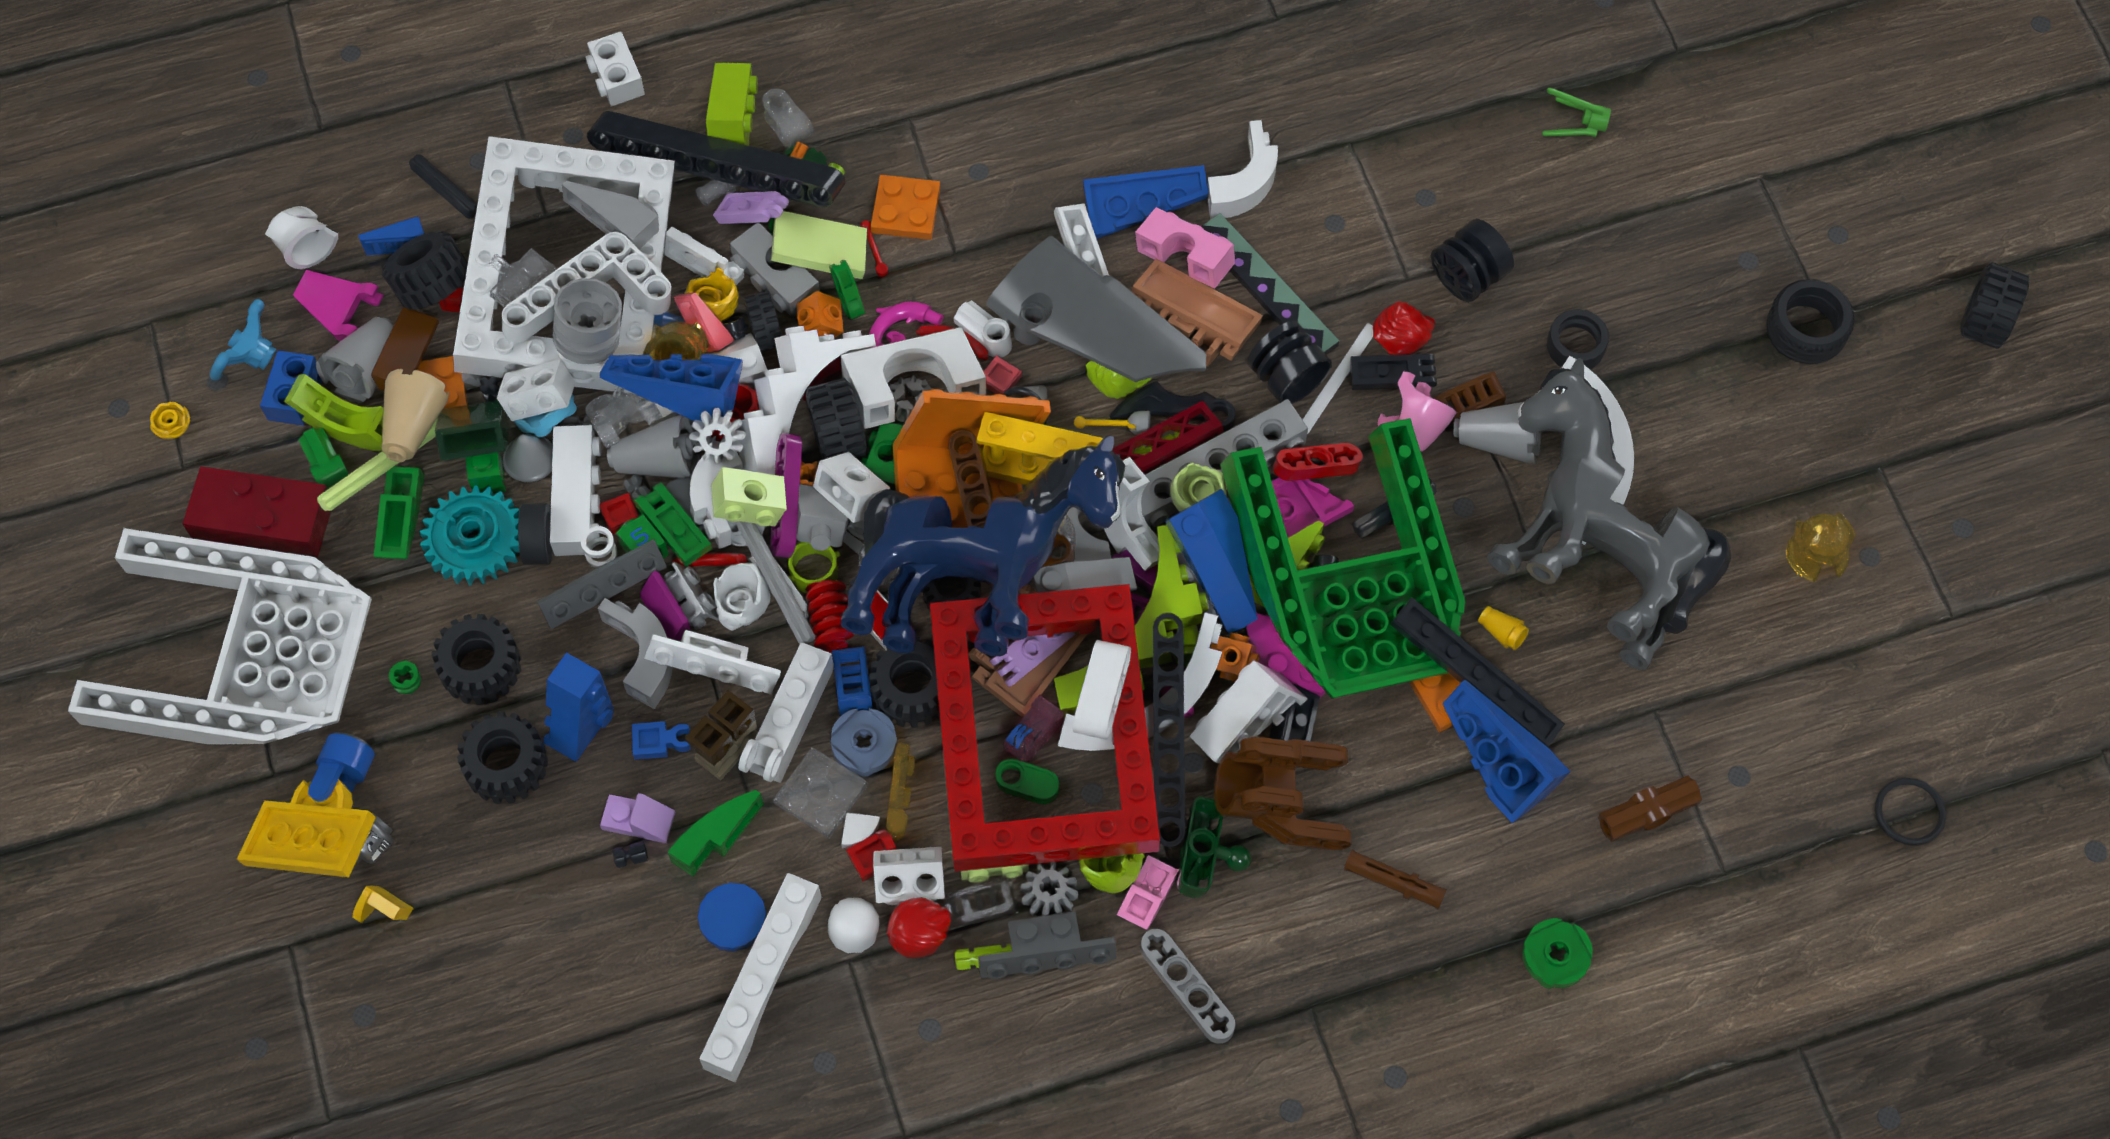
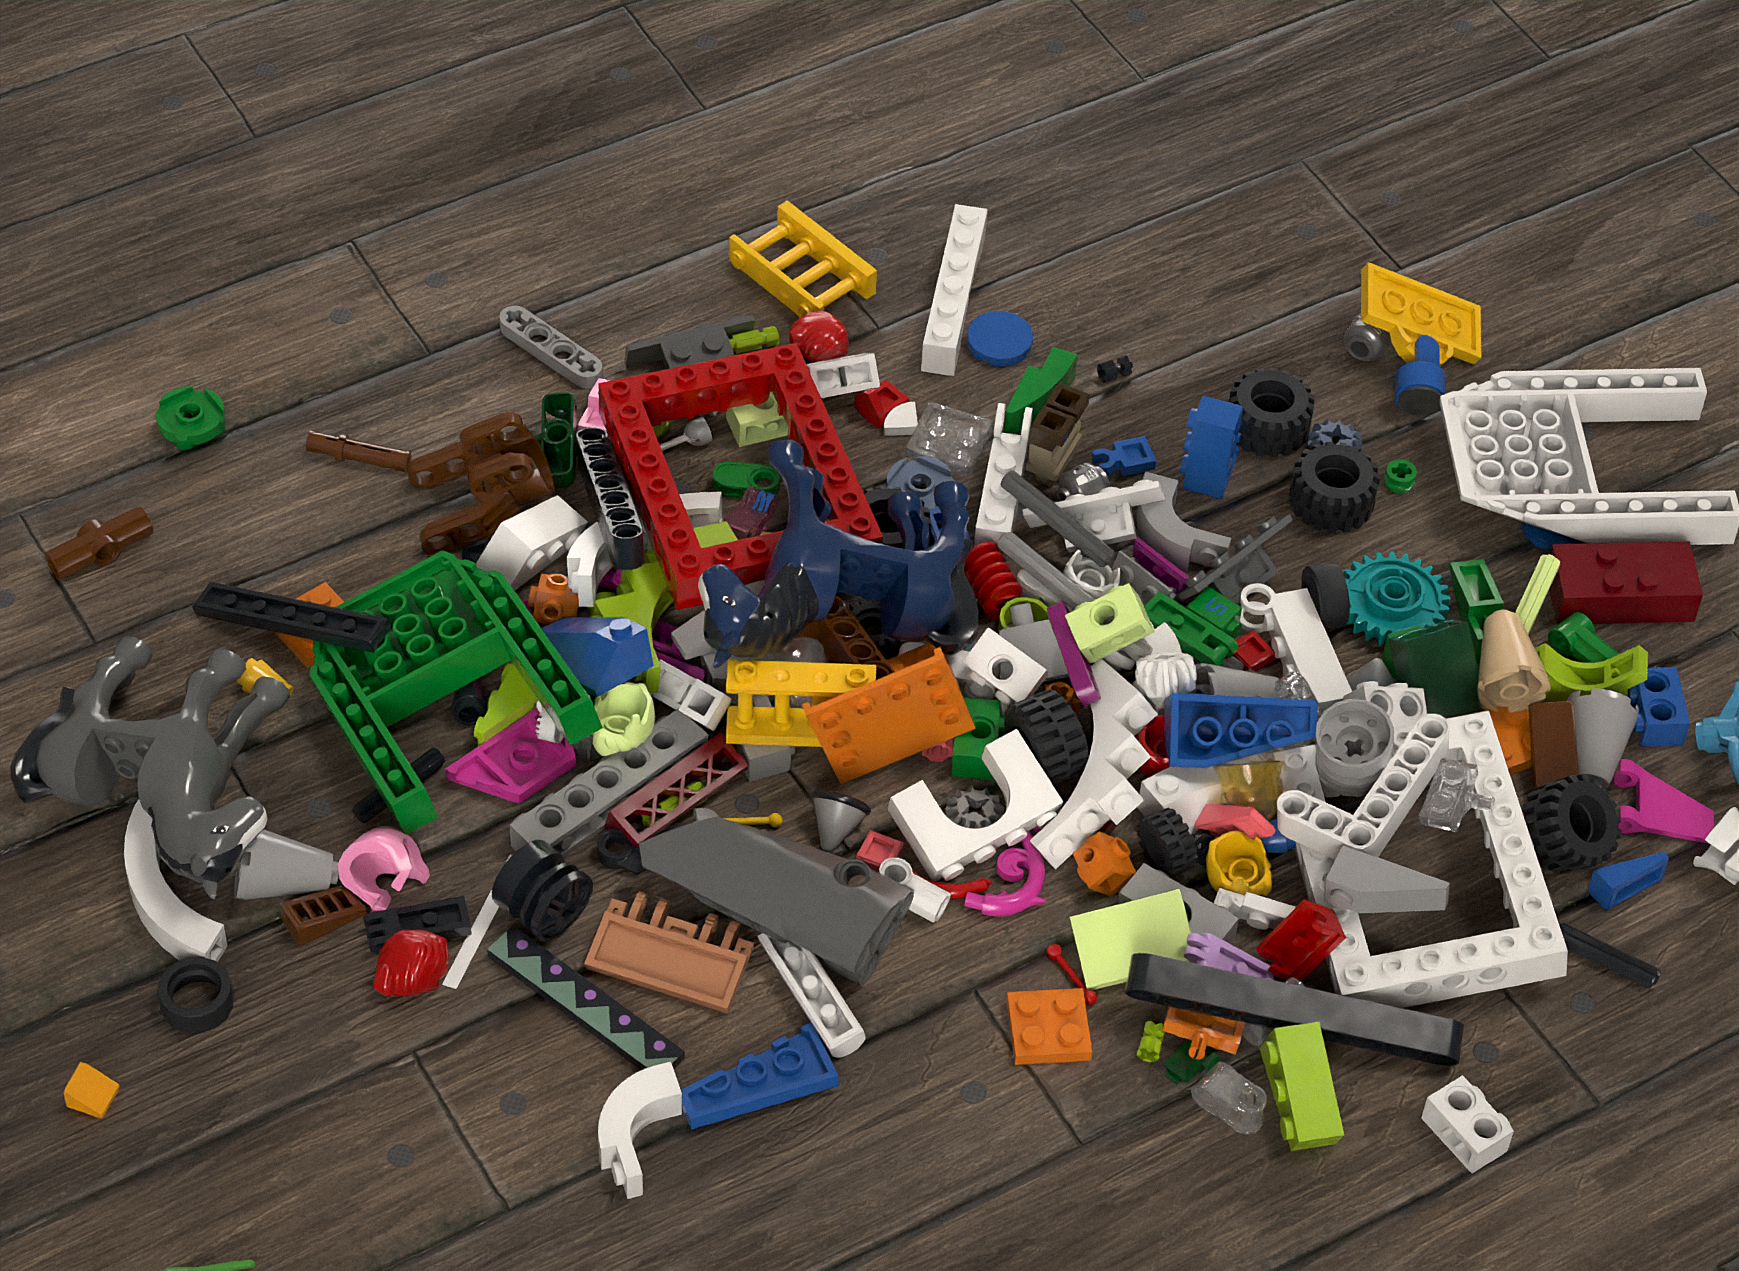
camera: 165 degrees right, 15 degrees down
(378, 898) = (1326, 295): yellow tile -> none
(434, 733) = (1326, 431): none -> sand blue gear
(638, 817) = (1115, 398): lavender slope -> none
(686, 213) = (1302, 941): none -> red hinge
(706, 696) = (1083, 480): none -> flat silver head
(754, 643) = (1057, 518): none -> dark grey axle
(847, 290) = (1083, 892): green piece -> none
(853, 925) = (886, 343): white hair -> none
(892, 1071) = (810, 241): none -> yellow fence
(899, 794) = (870, 444): clear yellow hinge -> none
(1101, 689) = (683, 469): white beam -> none
(1166, 234) = (717, 1031): bright pink arch -> none
(1338, 458) = (489, 820): red beam -> none
(1472, 260) = (334, 1044): black wheel -> none
(1509, 758) = (247, 554): blue wedge -> none
(1661, 279) = (90, 1091): none -> light orange slope

